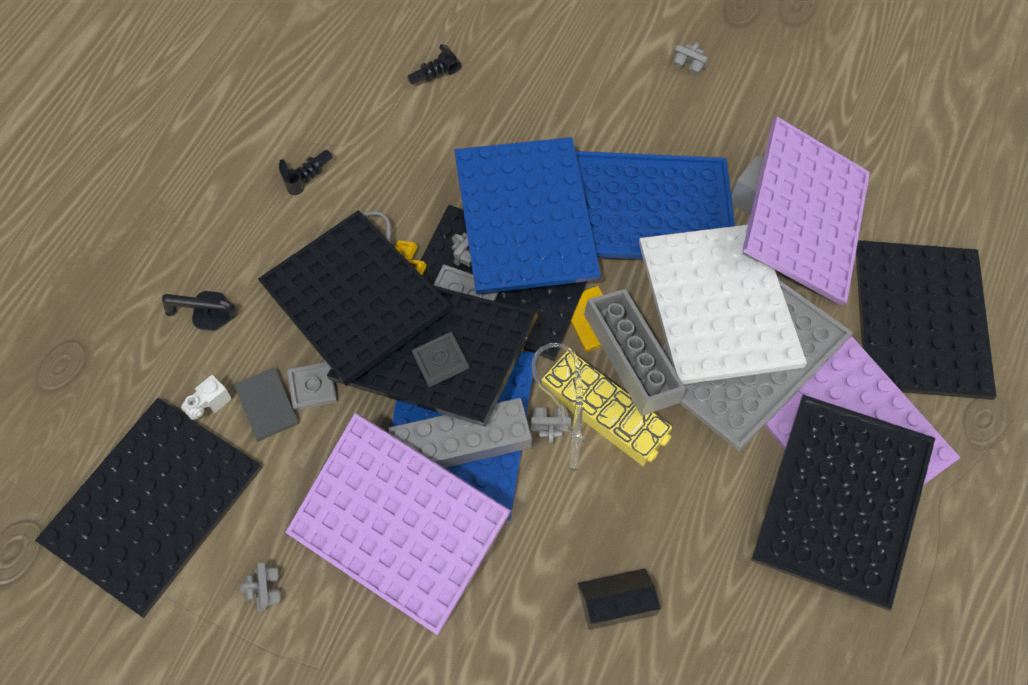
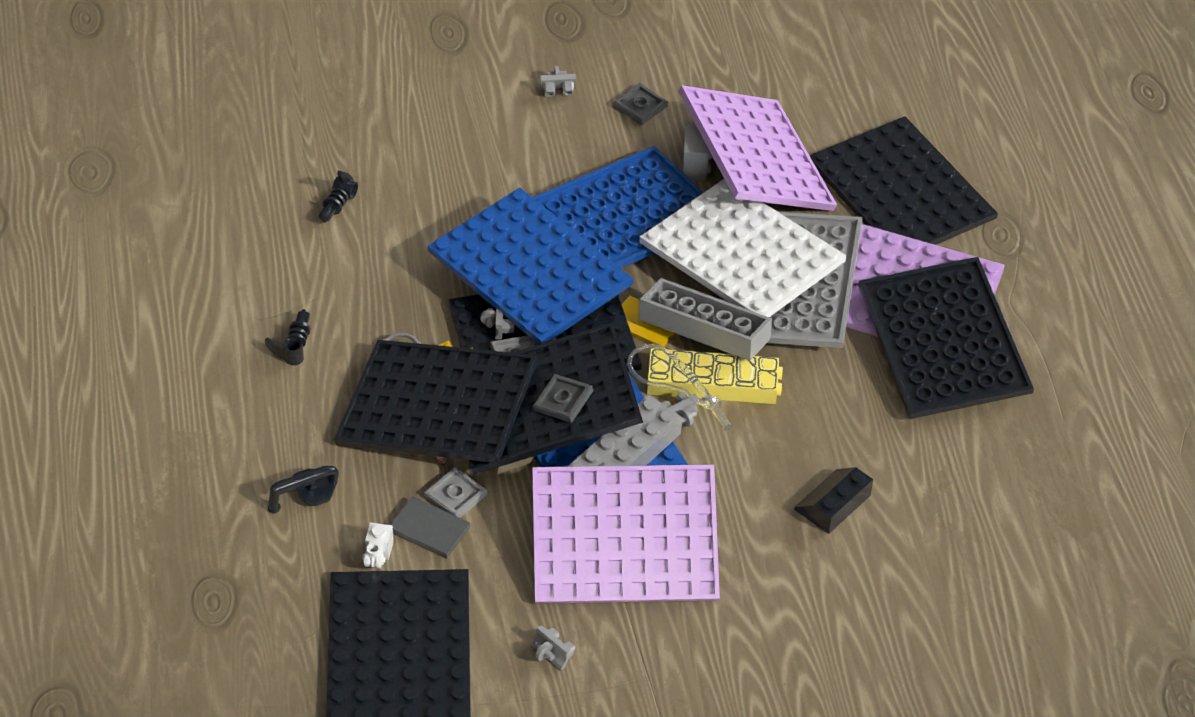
camera: 35 degrees left, 15 degrees down
(747, 113) = (640, 104): none -> dark grey tile

